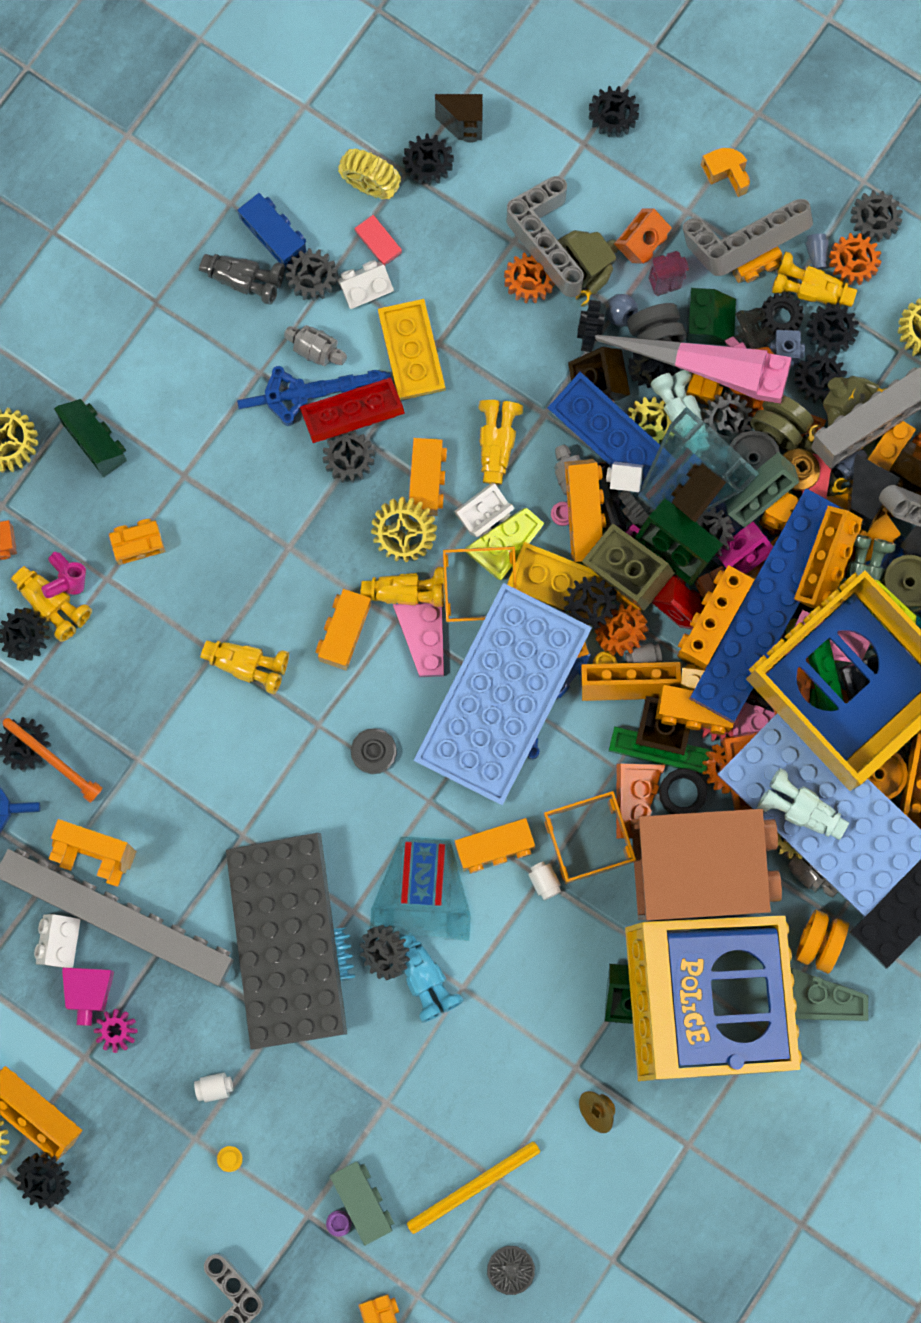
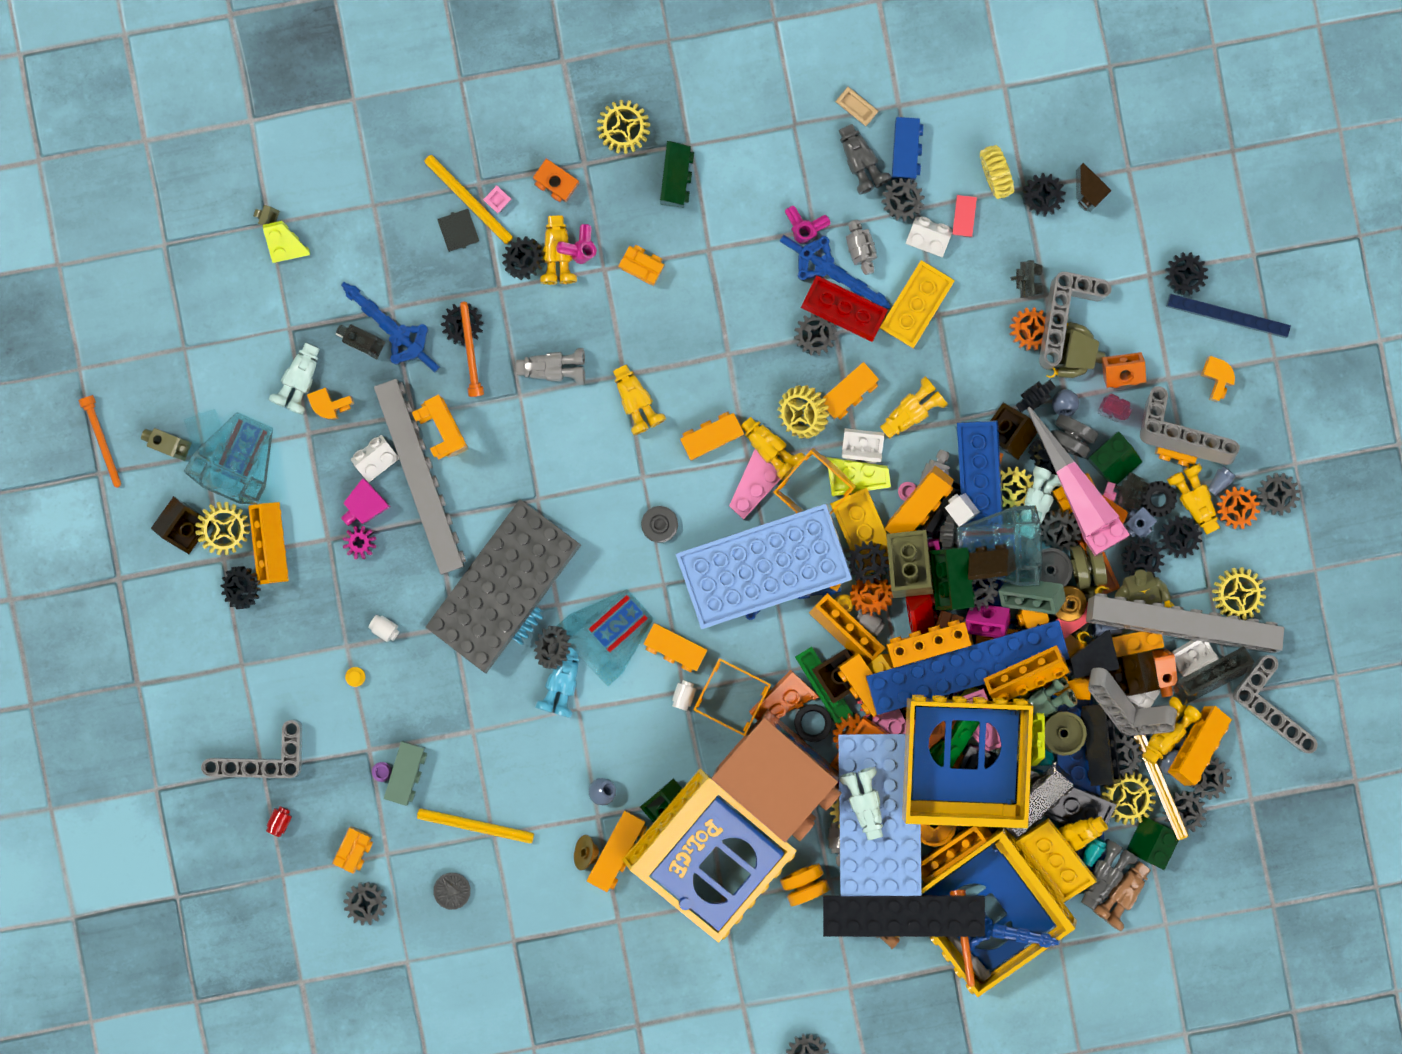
camera: 45 degrees right, 10 degrees up
(140, 706) = (550, 366): none -> light grey piece
(194, 236) = (856, 106): none -> tan tile
(253, 372) = (811, 227): none -> dark pink axle
(483, 241) = (1025, 279): none -> clear smoke hips
(557, 1039) = (602, 791): none -> sand blue piece
(623, 1083) = (616, 848): none -> light orange brick
(683, 113) = (1228, 316): none -> dark blue piece
(827, 1001) = (775, 918): sand green wing -> none

